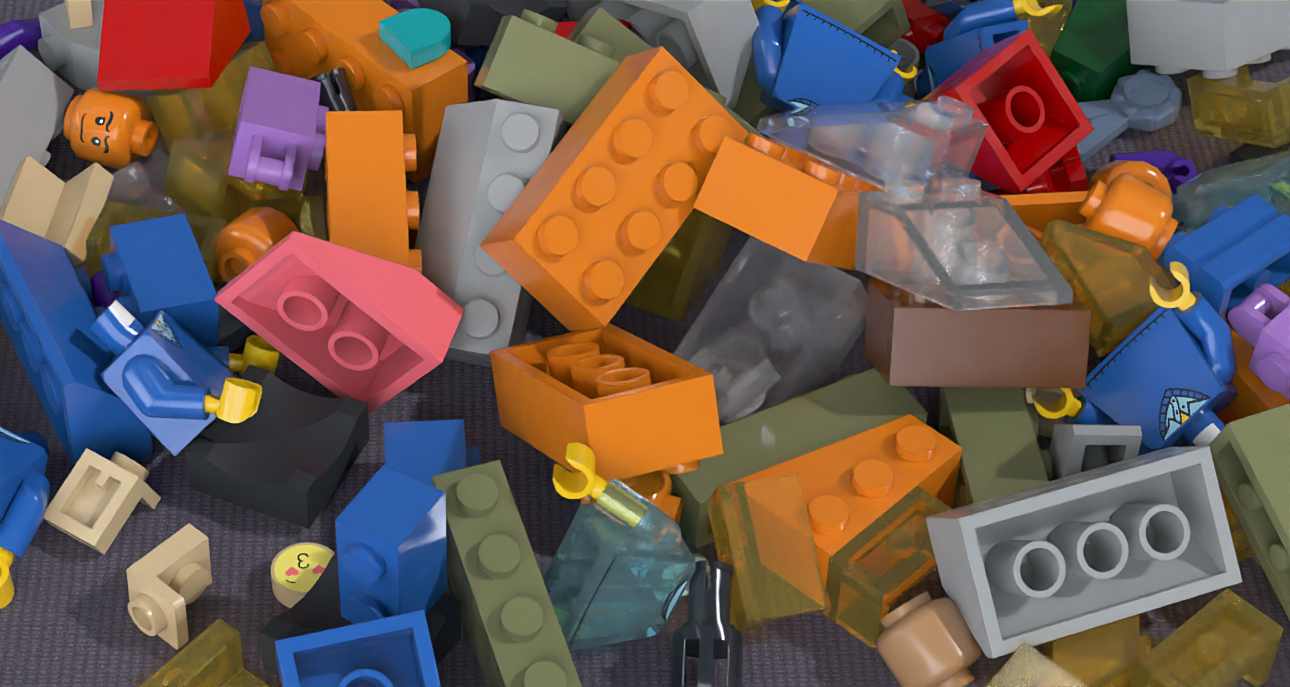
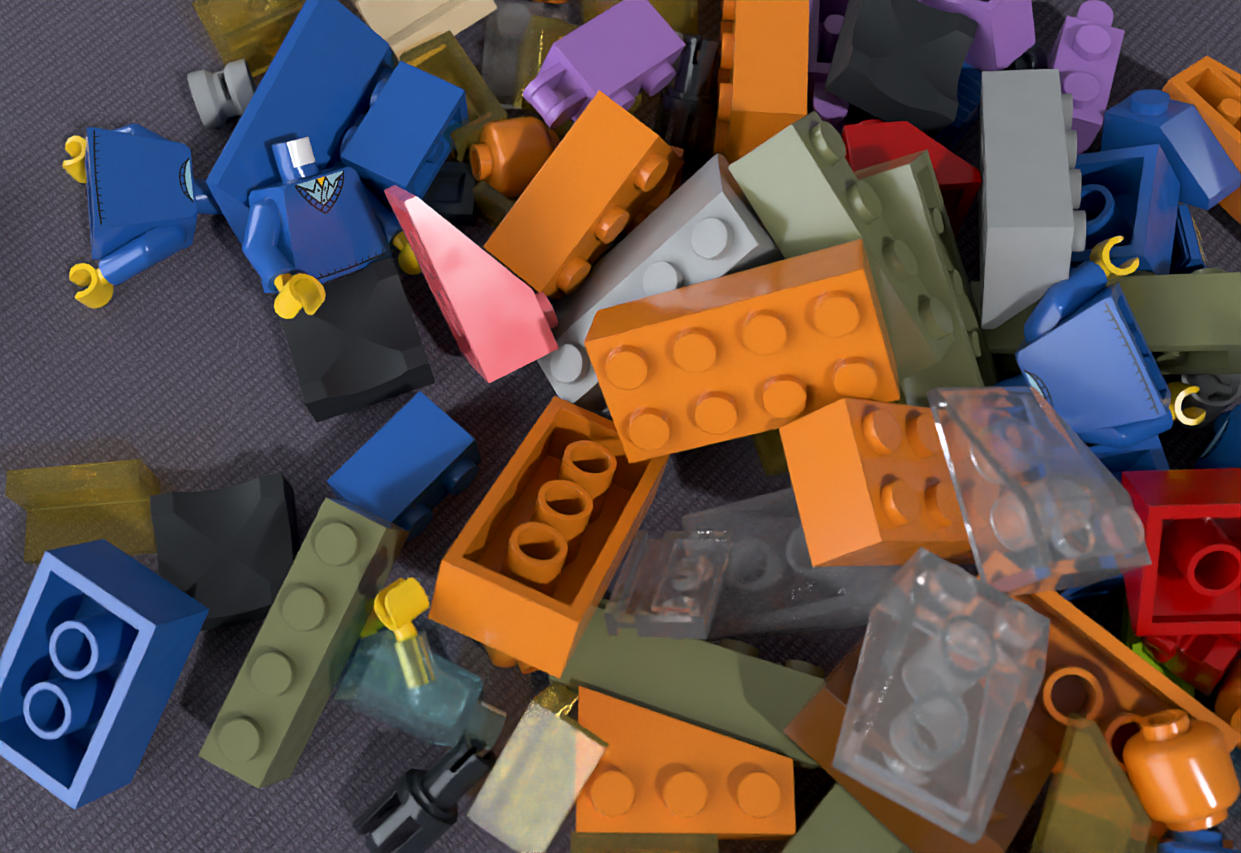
camera: 50 degrees right, 25 degrees up
(99, 498) = (209, 279): tan bracket -> none
(167, 582) = (170, 385): tan bracket -> none
(297, 570) = (270, 453): light yellow tile -> none
(391, 548) = (229, 535): blue brick -> none
(417, 35) = (787, 61): teal tile -> none

